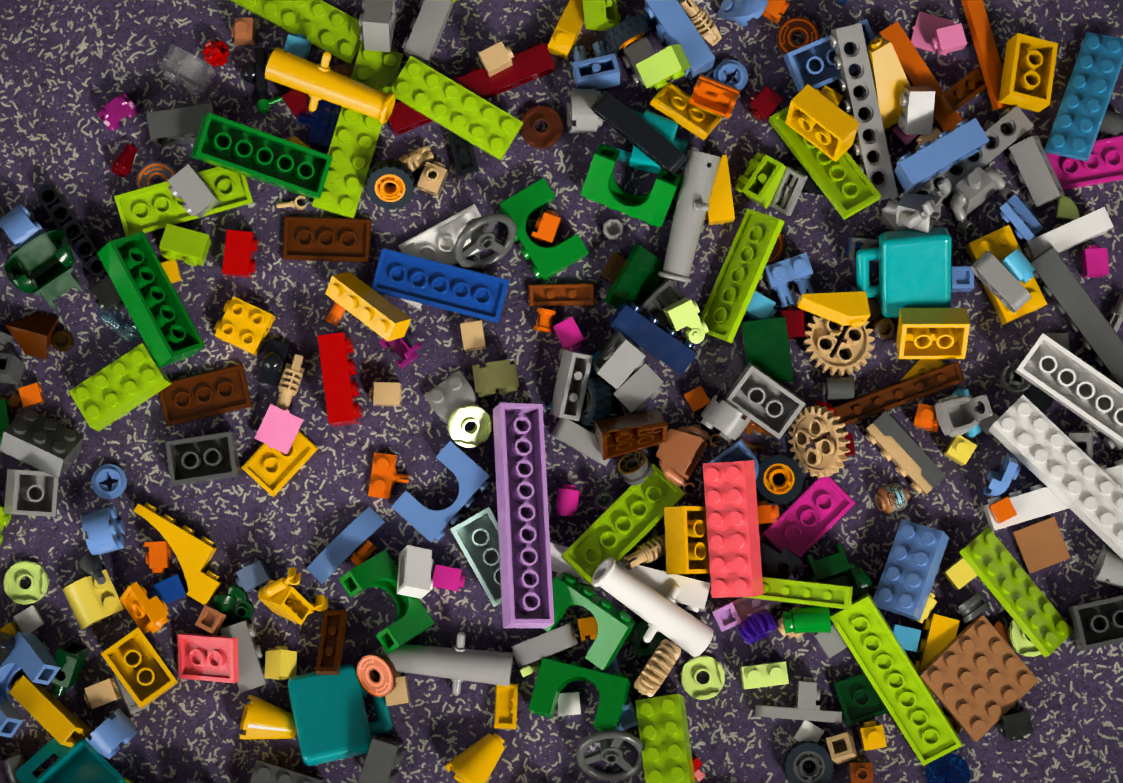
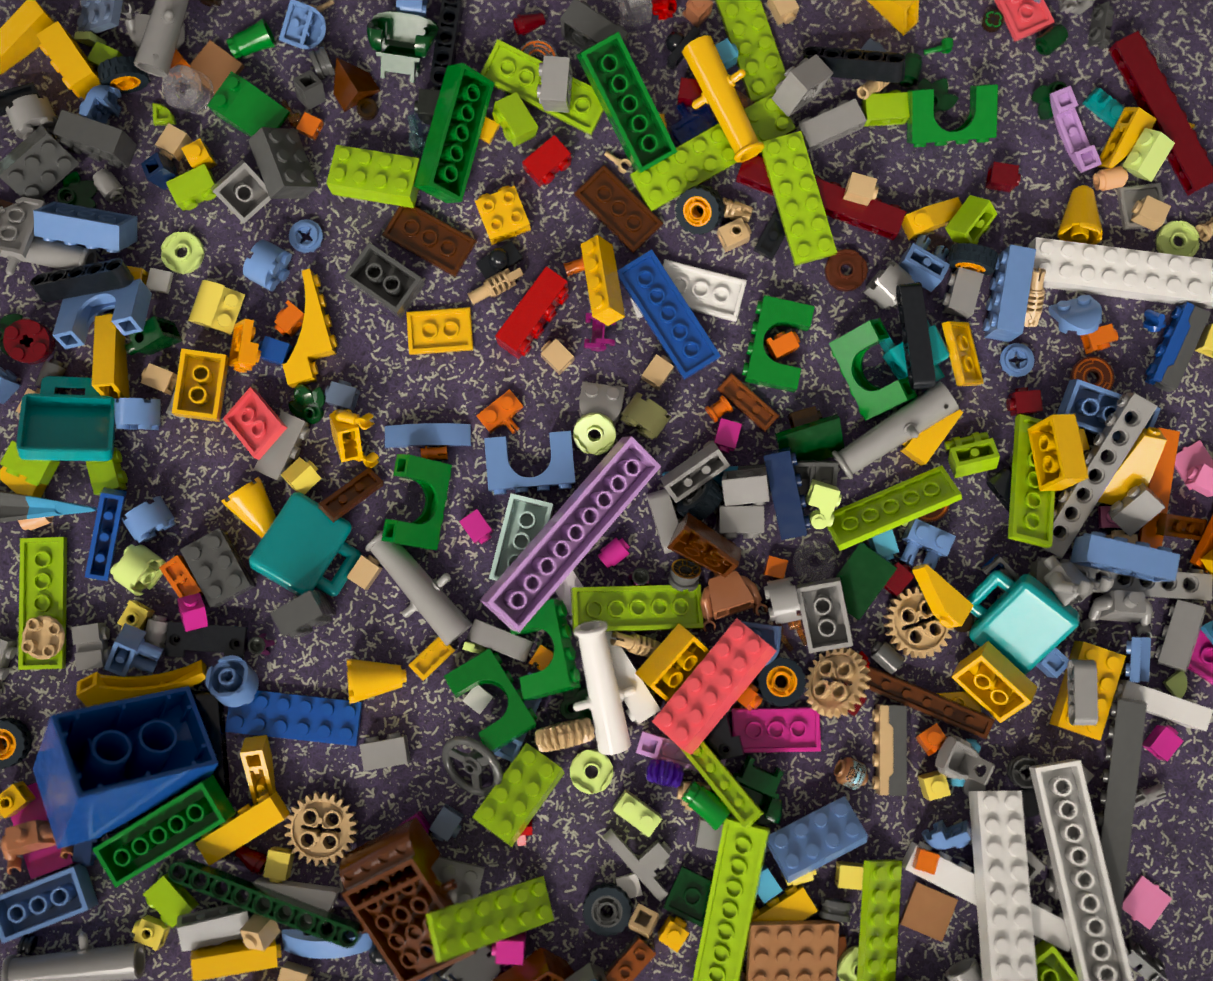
camera: 35 degrees right, 0 degrees up
(92, 565) = (237, 284): dark grey cone -> none
(210, 620) = (281, 398): nougat tile -> none
(263, 104) = (663, 73): green hand -> none
(279, 428) = (458, 309): bright pink piece -> none
(367, 678) = (351, 544): tile -> none
(414, 572) = (457, 500): white piece -> none
(482, 238) = (730, 307): dark grey piece -> none
(613, 229) = (829, 390): light grey tile -> none
(663, 66) = (978, 304): lime brick -> none
(714, 96) = (993, 362): orange hinge -> none
(792, 188) = (969, 493): light grey tile -> none
(883, 327) = (960, 643): dark brown tile -> none
(1019, 266) = (1108, 694): medium azure brick -> none

